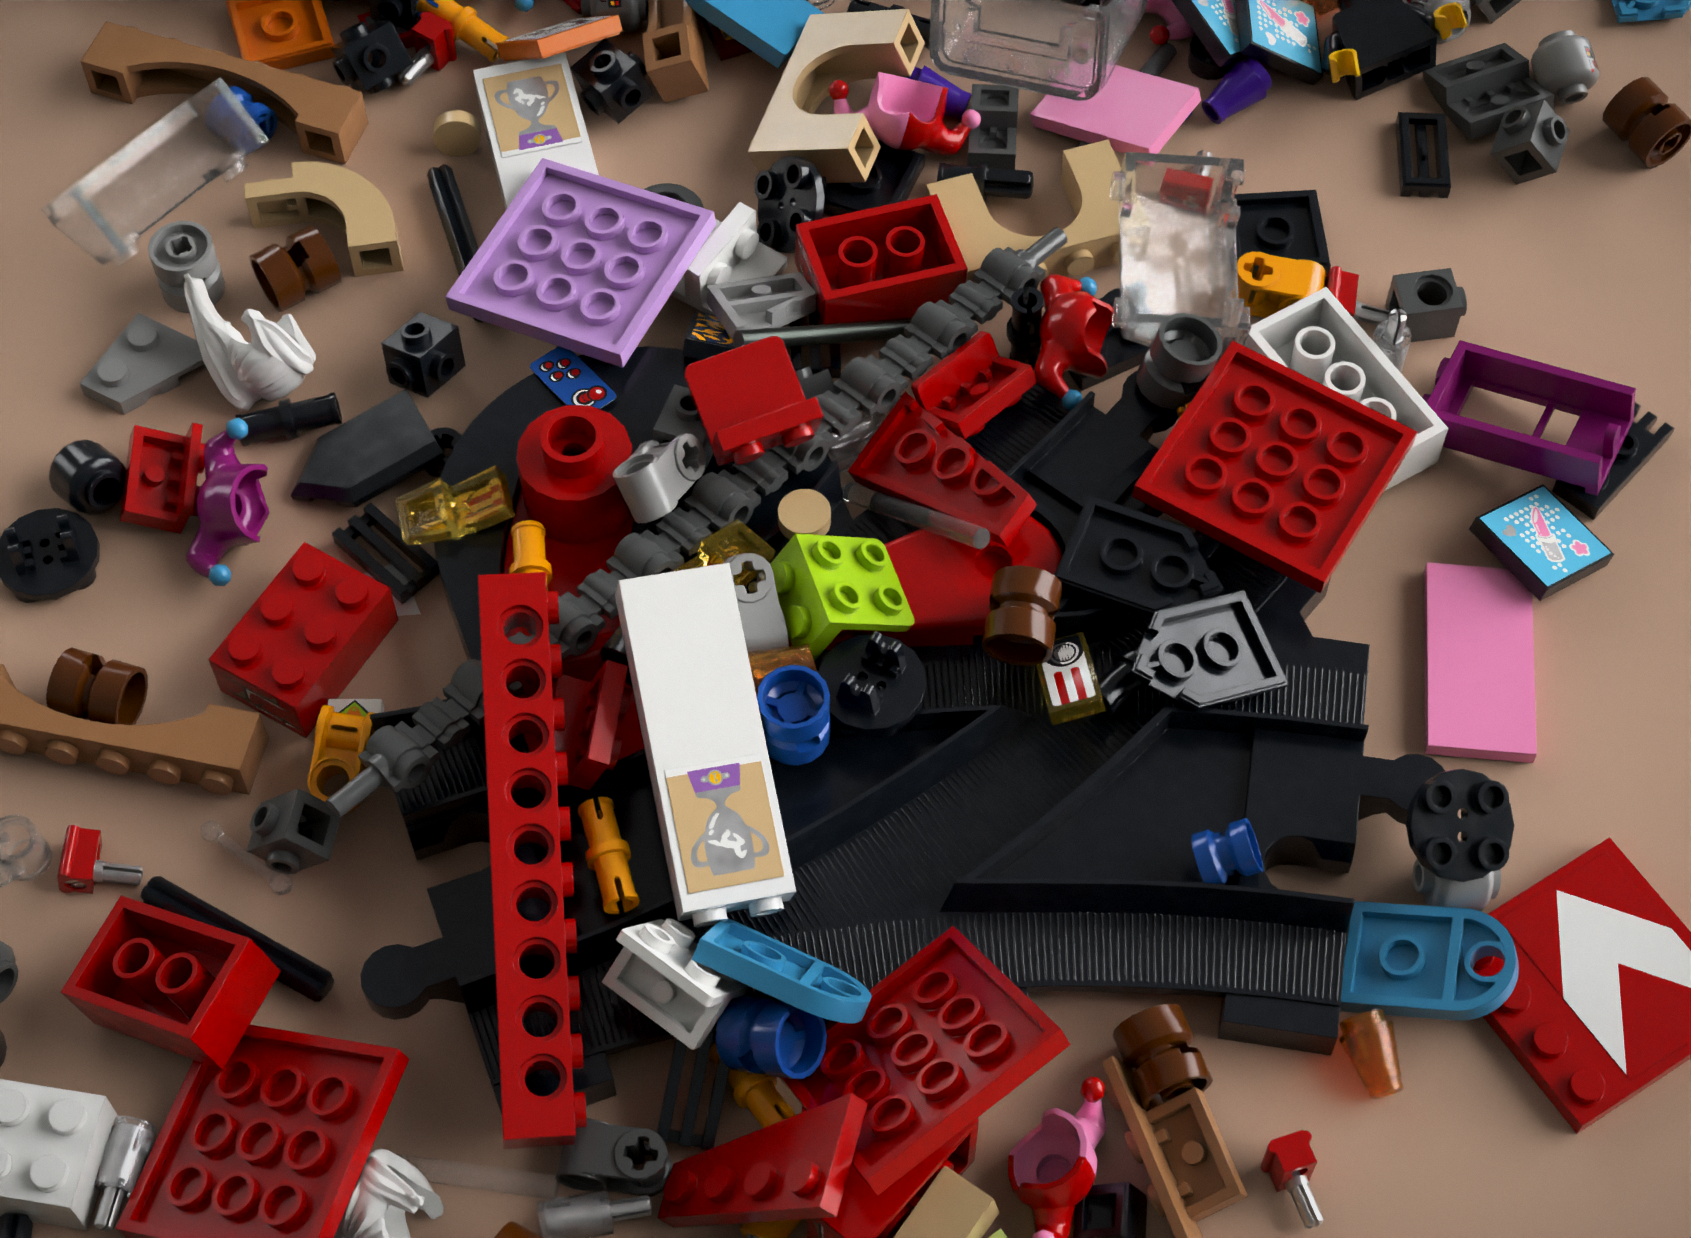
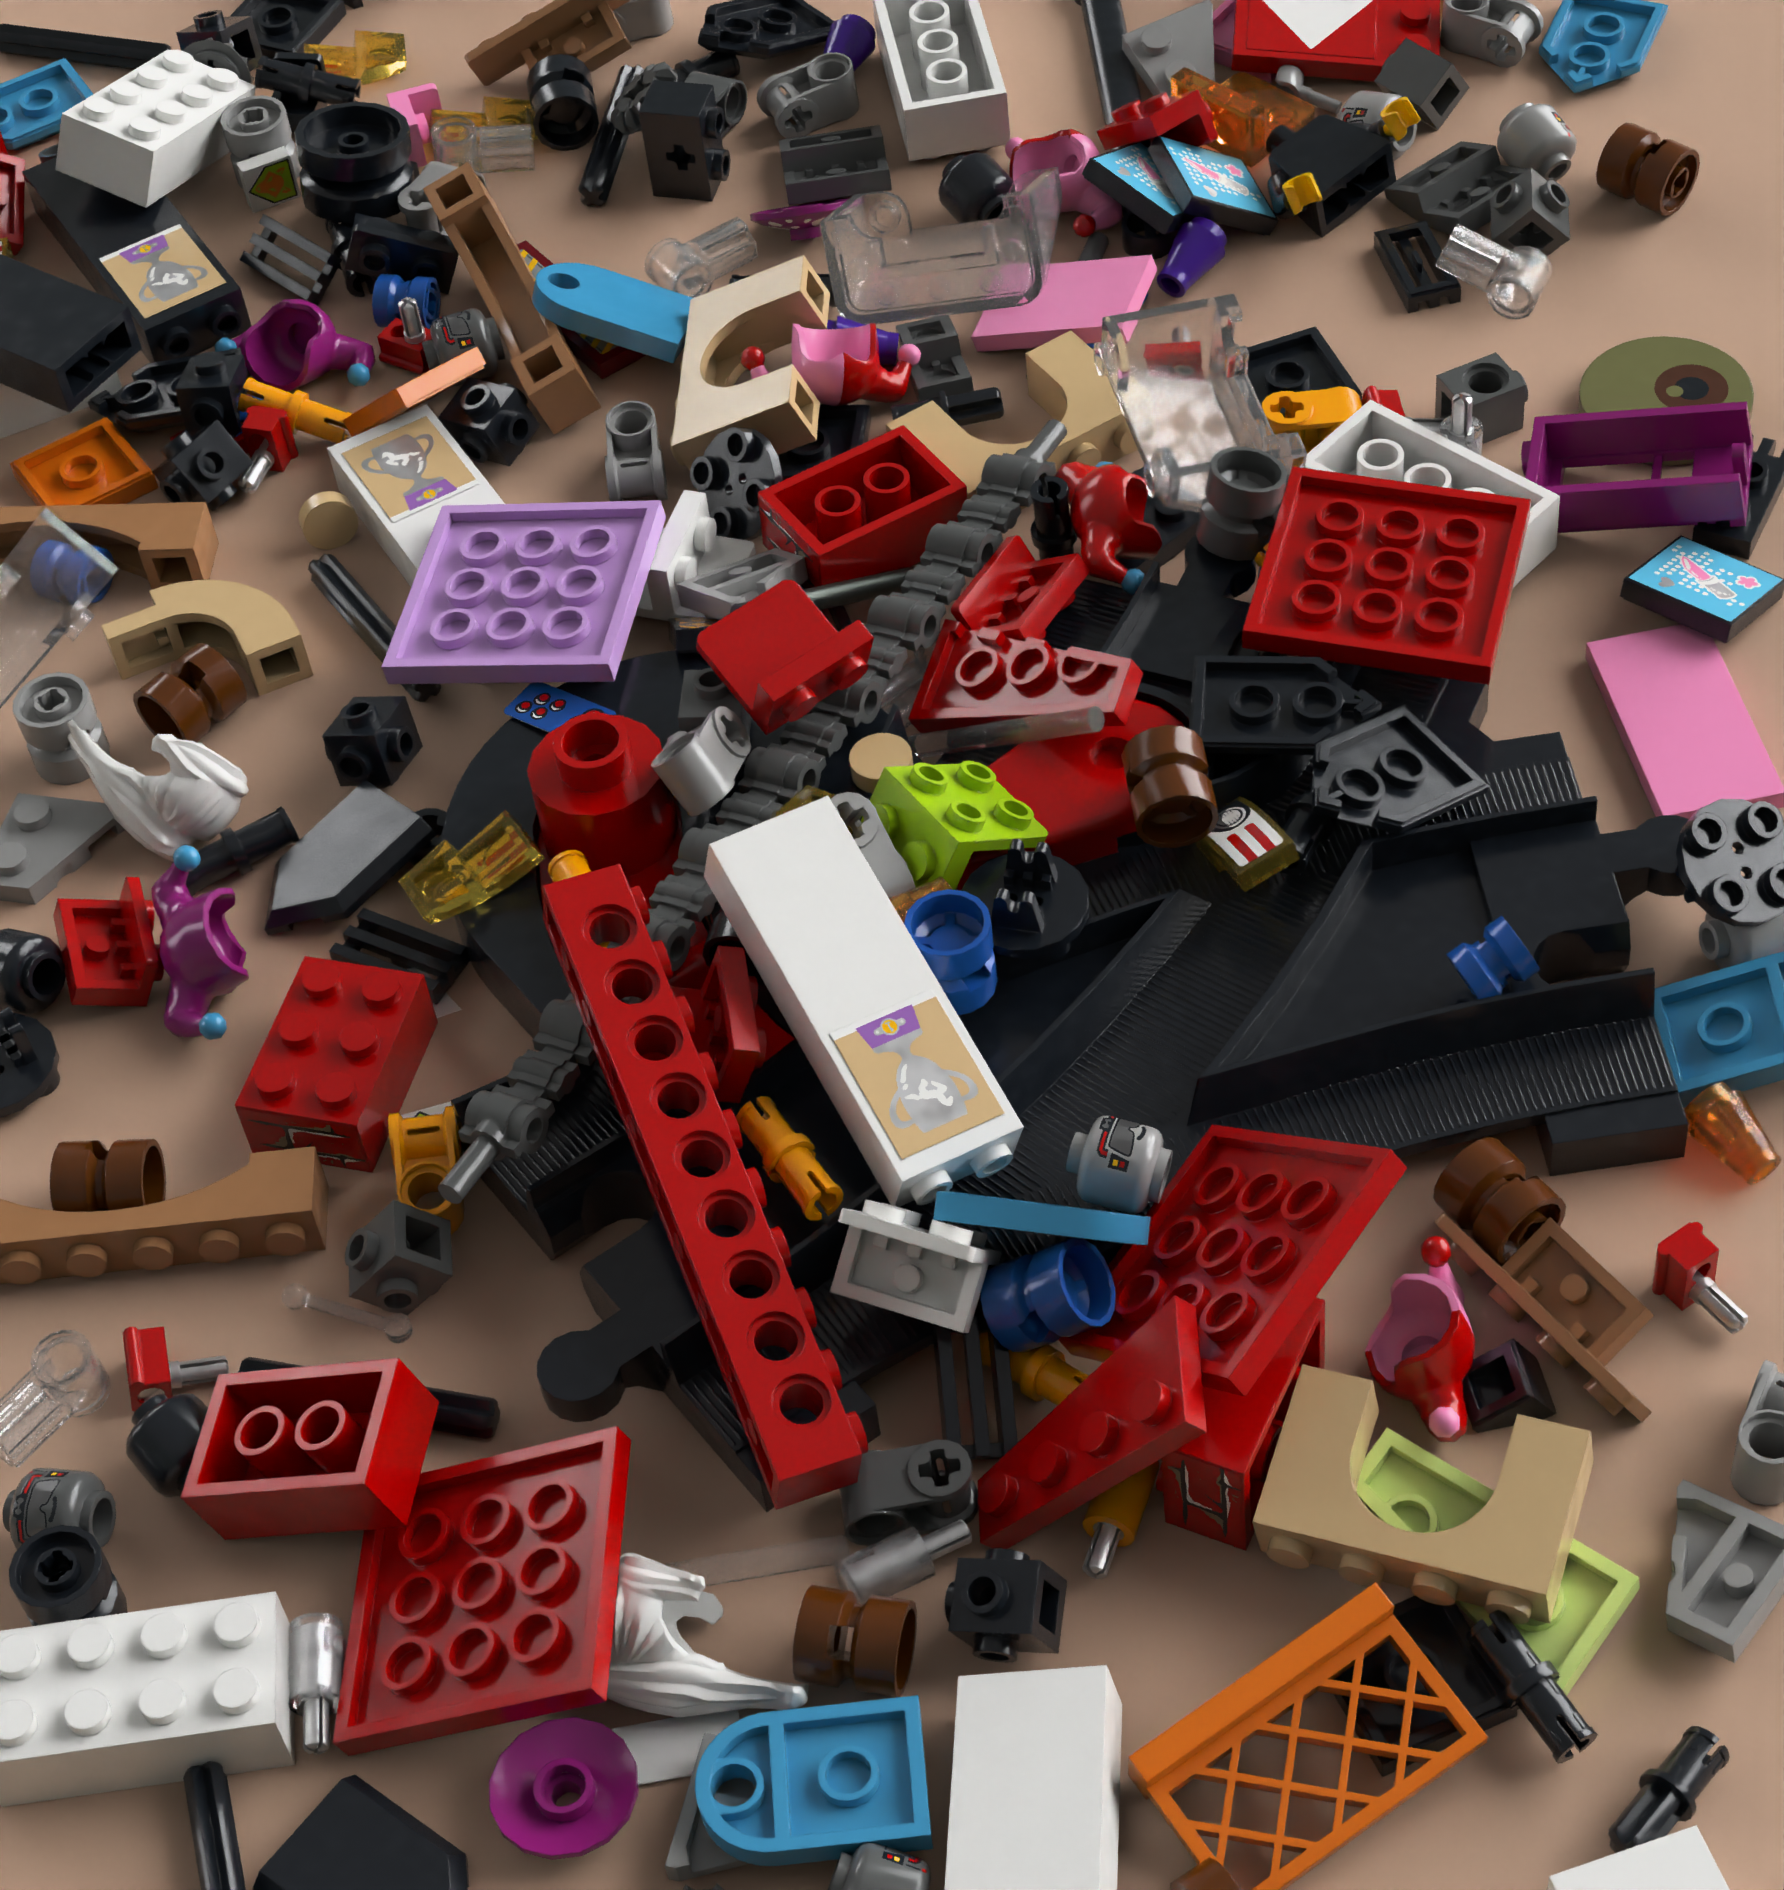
camera: 10 degrees left, 10 degrees down
(71, 930) = (166, 1440): none -> black head
(718, 146) = (634, 453): none -> light grey piece
(865, 942) = (1119, 1164): none -> light grey head
(1493, 192) = (1509, 277): none -> clear piece
(1585, 333) = (1663, 374): none -> olive tile

